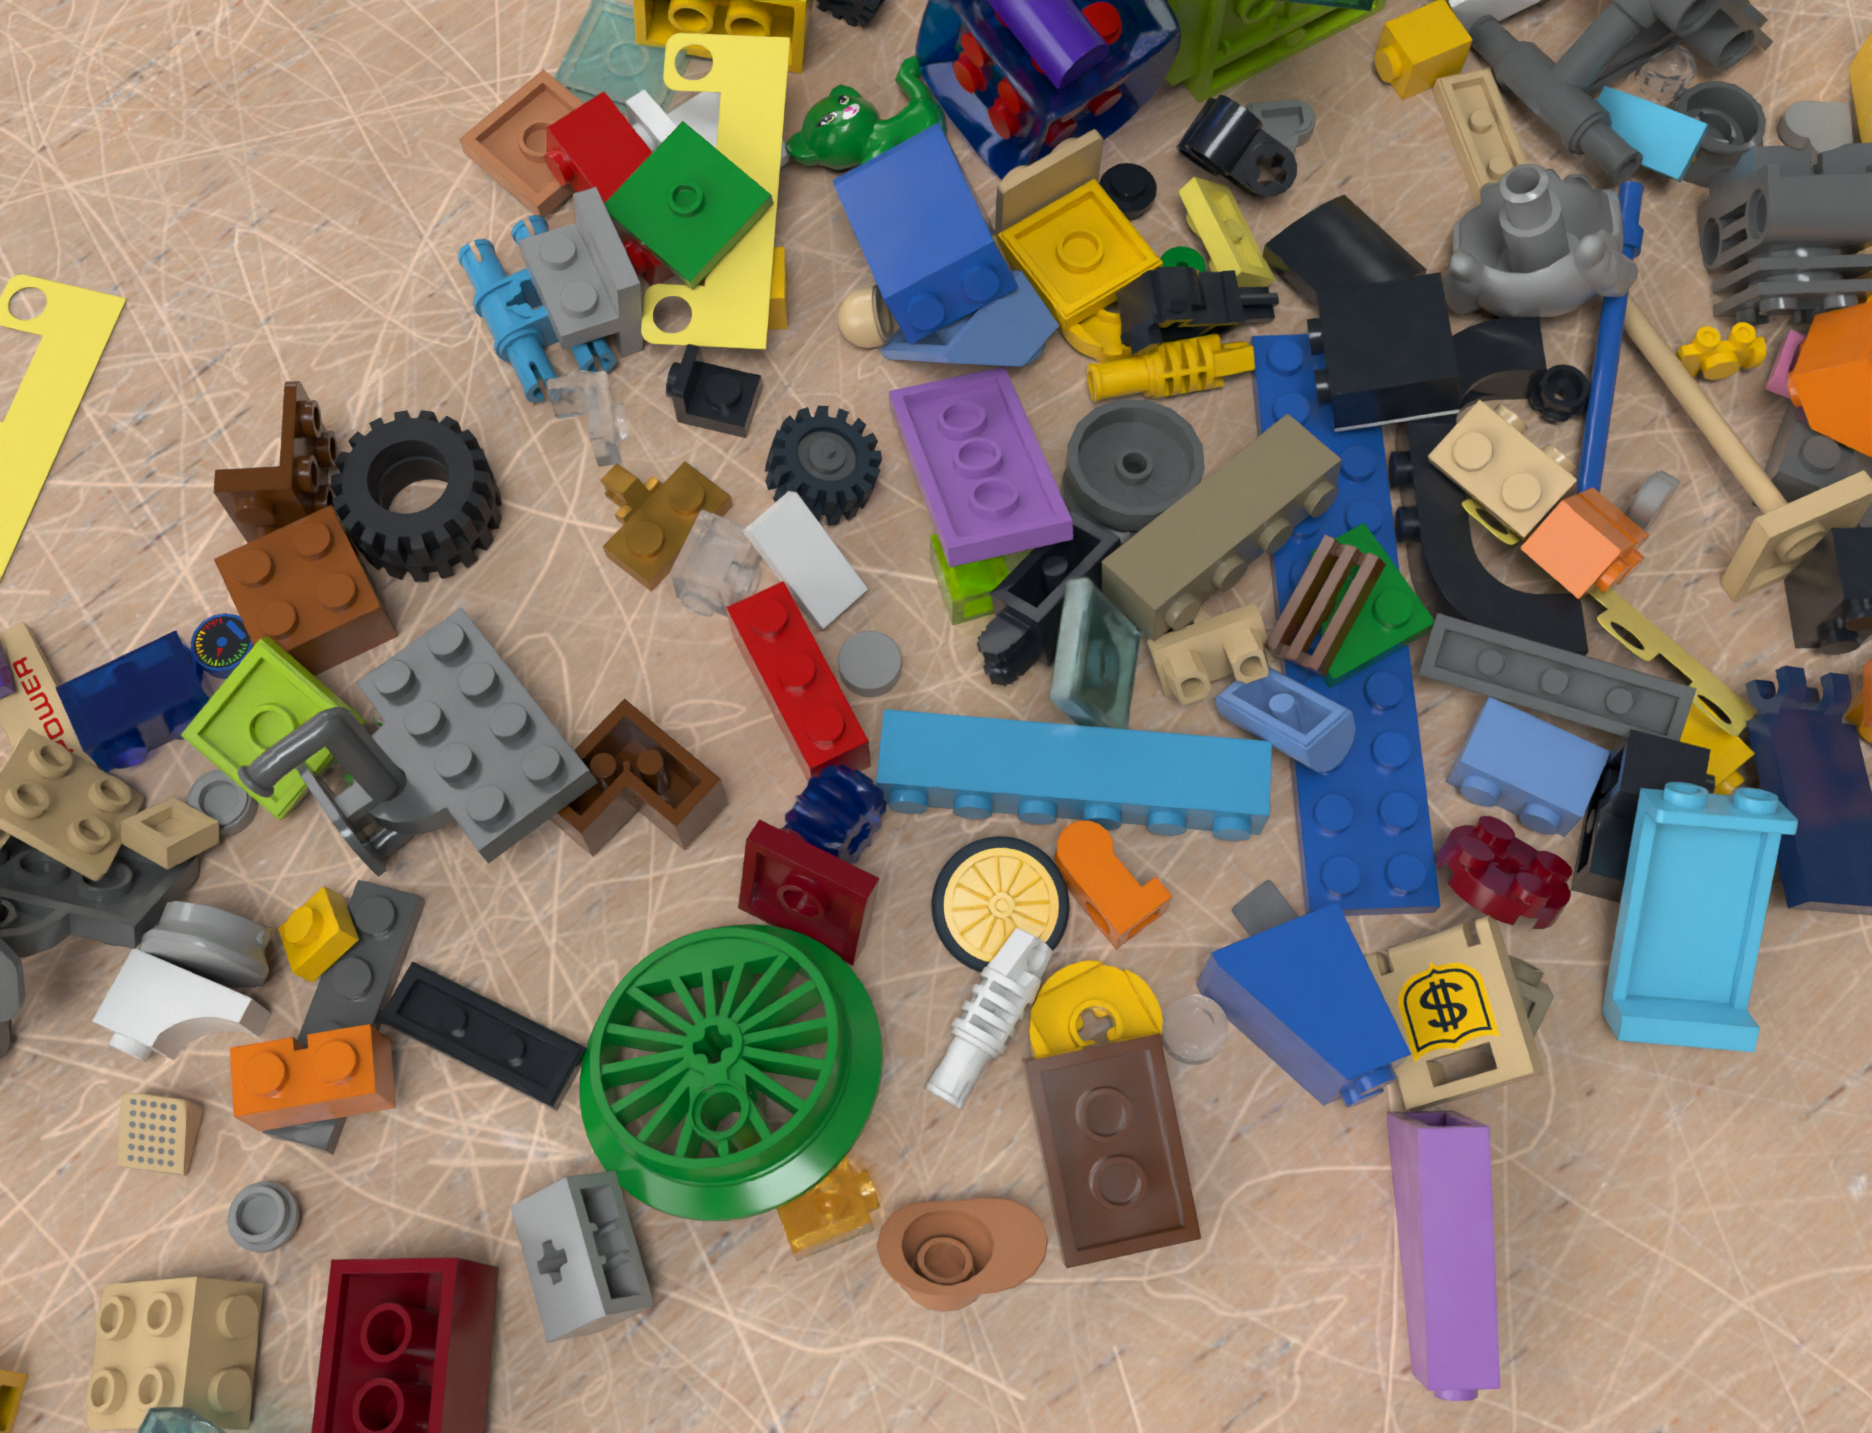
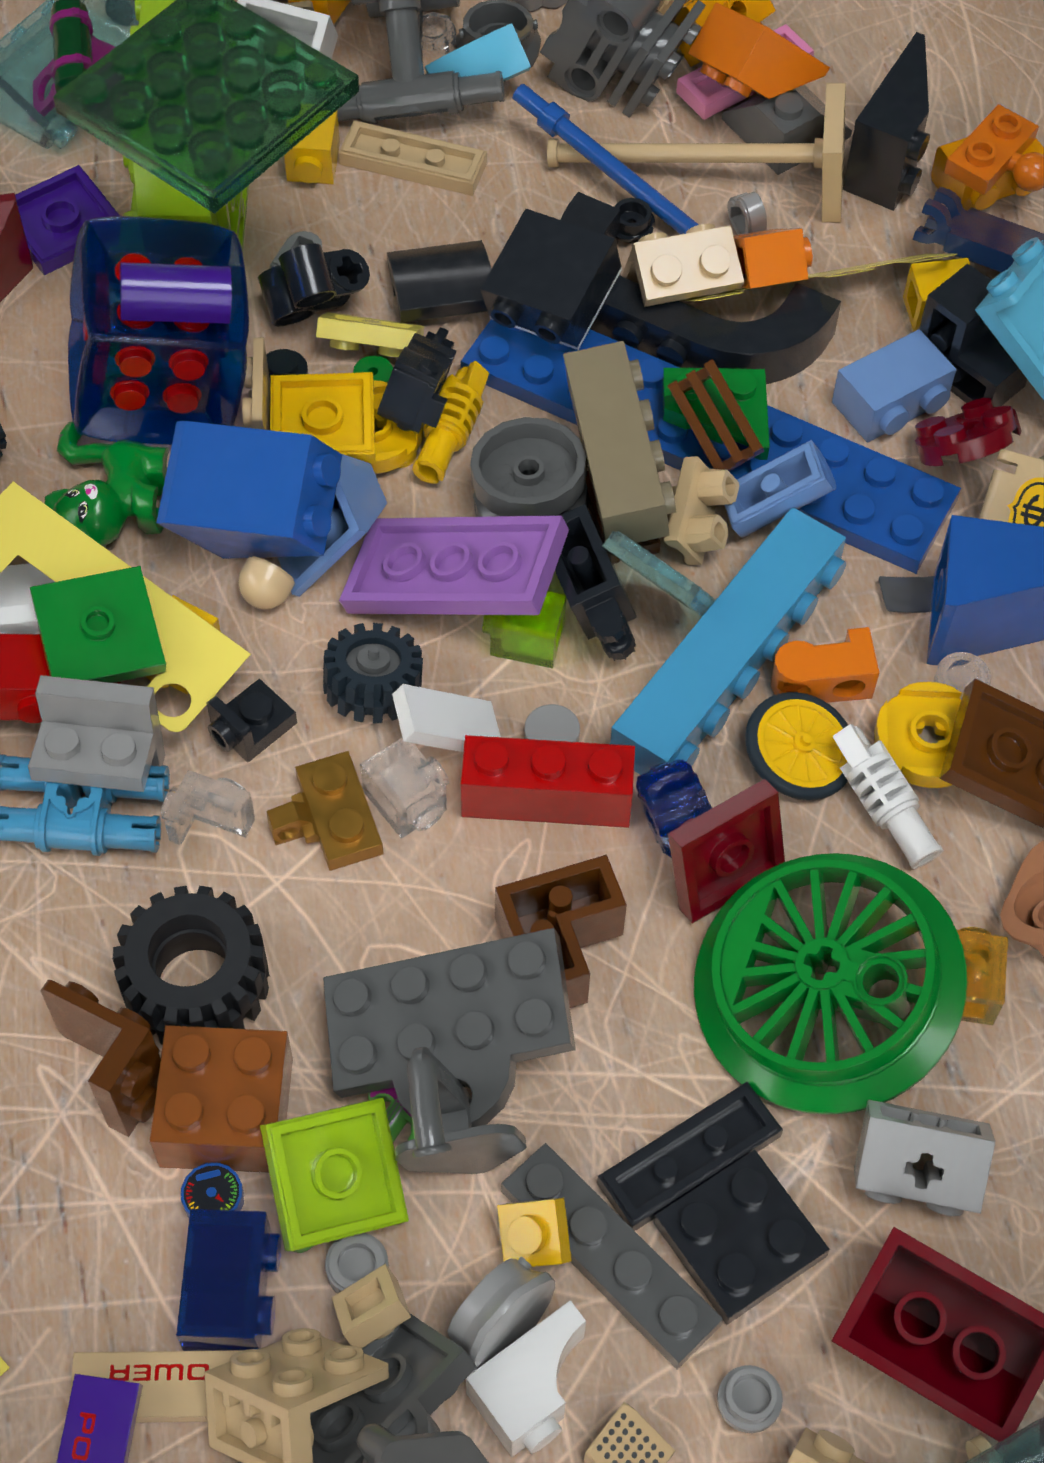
camera: 60 degrees left, 10 degrees down
(295, 1085) = (674, 1276): orange piece -> none
(435, 1134) = (741, 1236): none -> black plate
(1538, 247) = (528, 158): light grey piece -> none
(1554, 680) = (853, 327): dark grey plate -> none
(1722, 358) = (669, 120): yellow piece -> none

